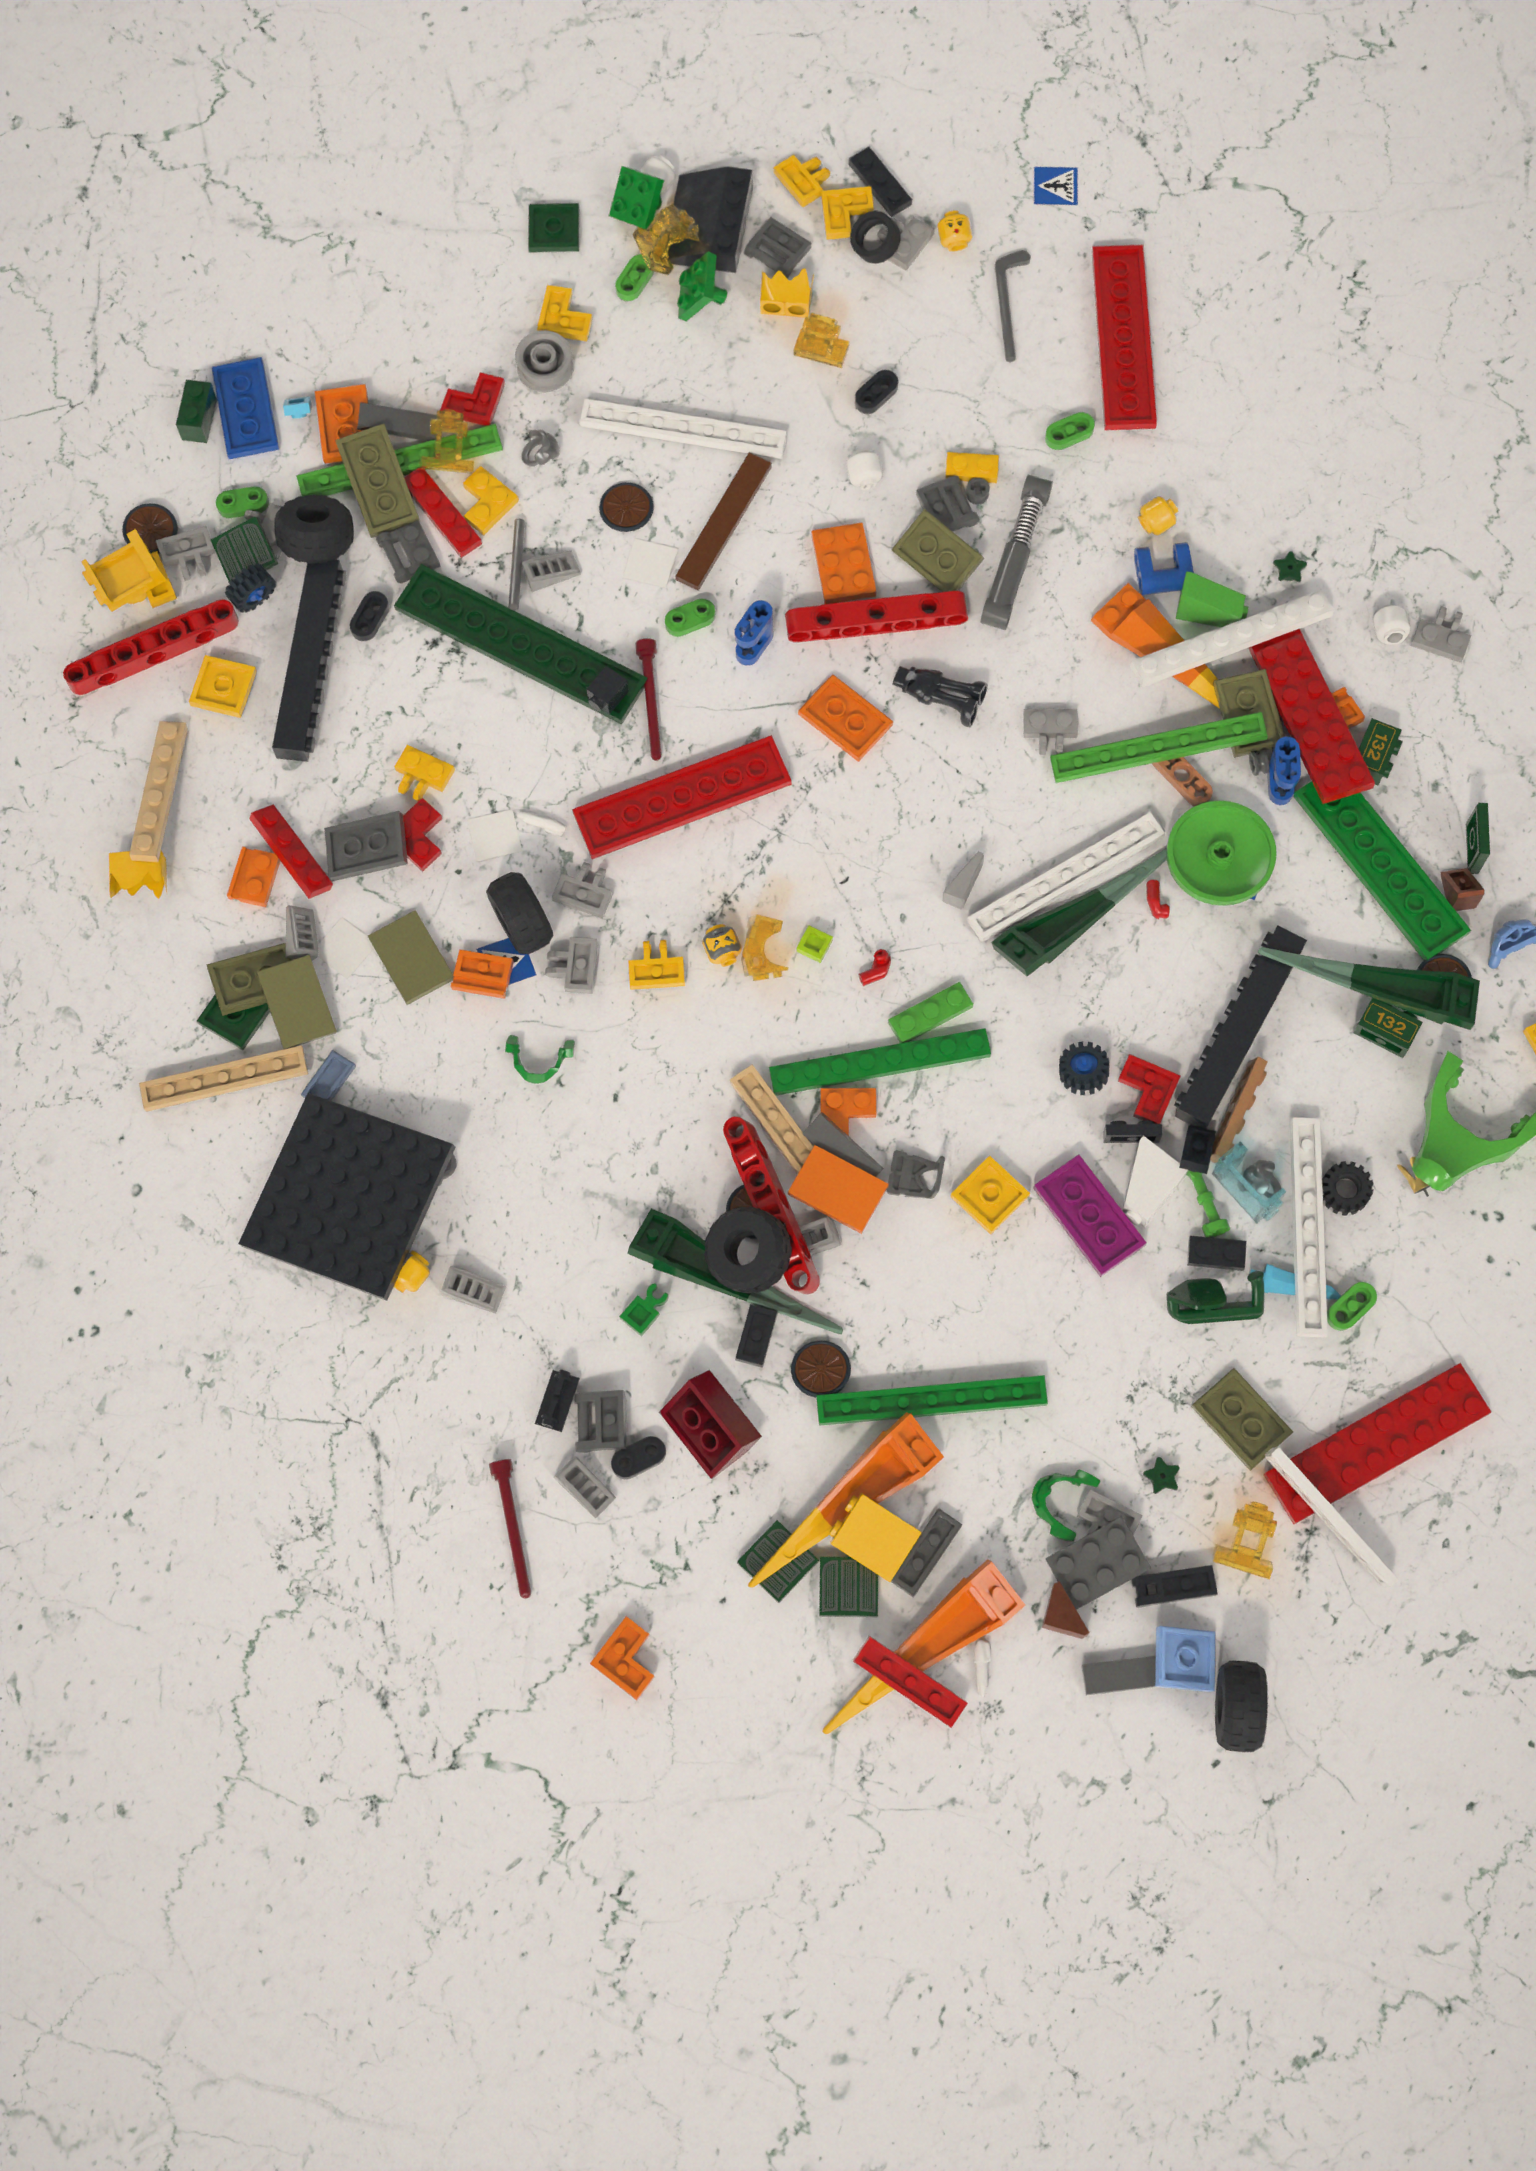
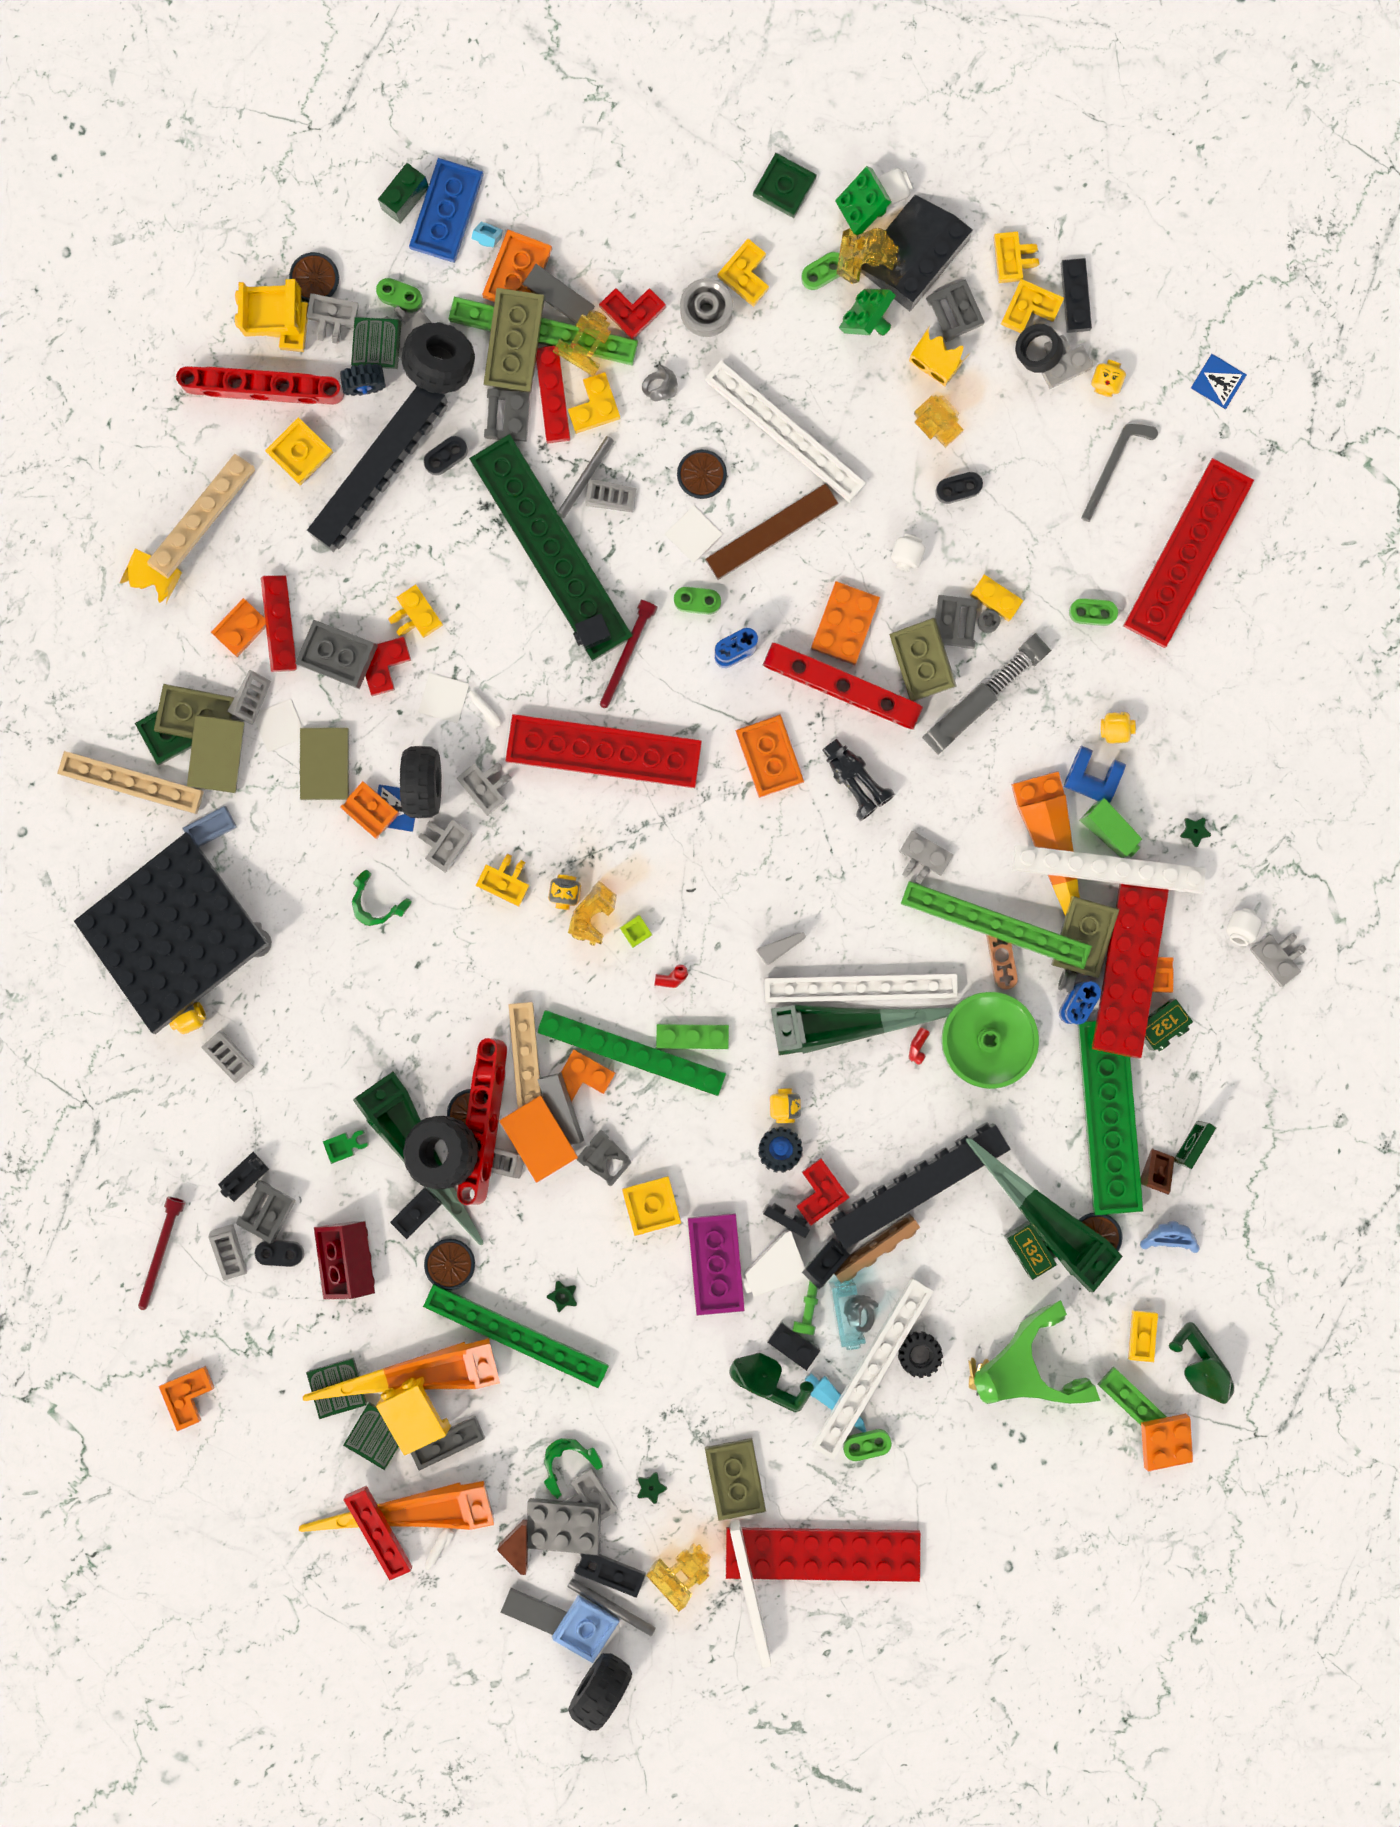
camera: 25 degrees right, 15 degrees up
(955, 1329) = (562, 1302): none -> dark green plate
(1062, 1025) = (785, 1106): none -> yellow head
(1199, 1623) = (611, 1607): none -> flat silver bar

